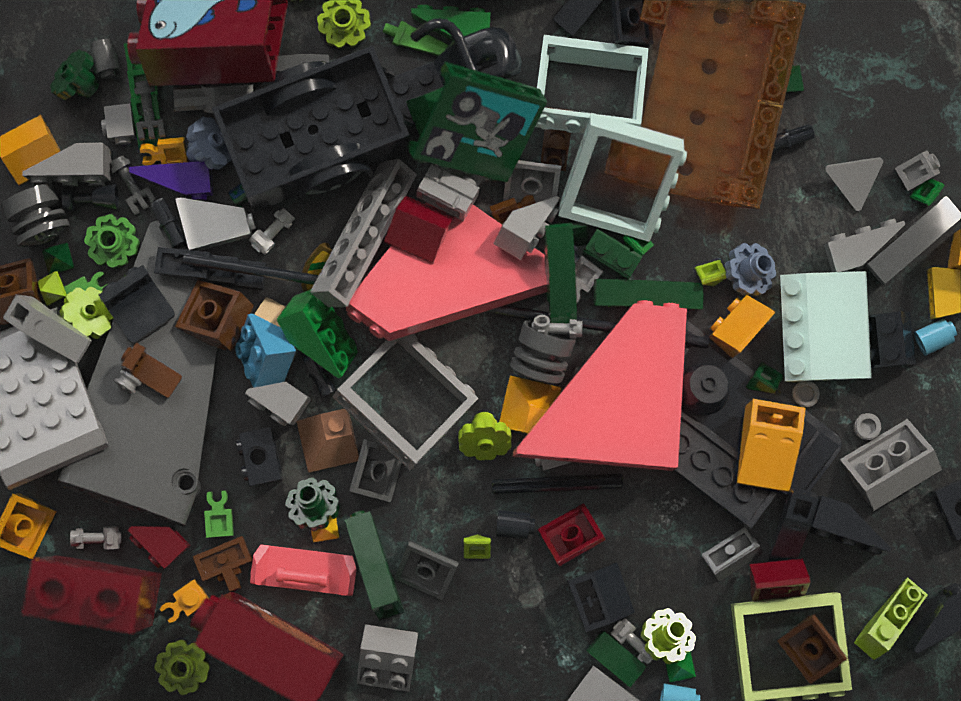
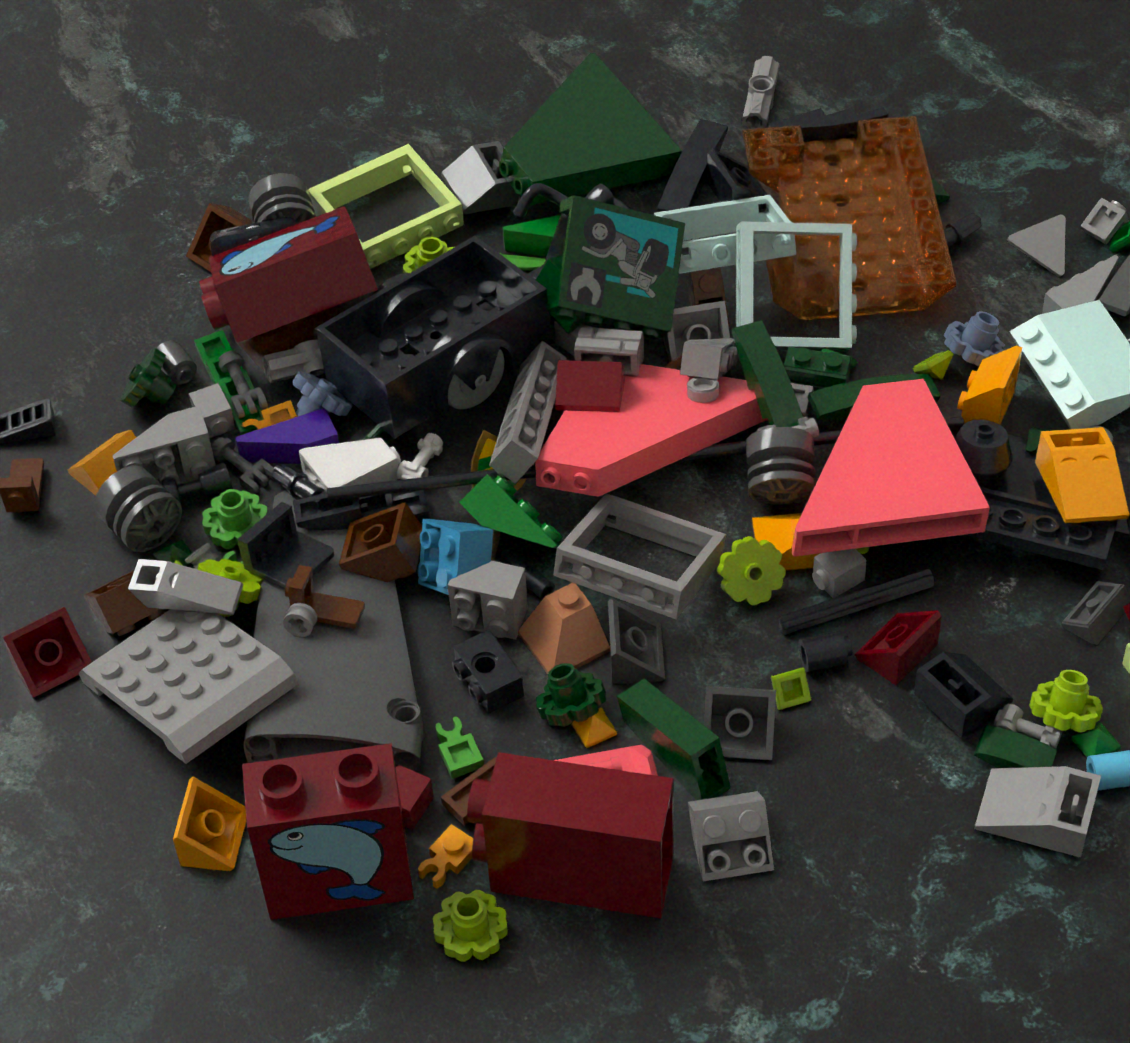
camera: 15 degrees left, 35 degrees down
(75, 273) = (200, 555): none -> light grey bush
(506, 263) = (702, 389): none -> light grey tile

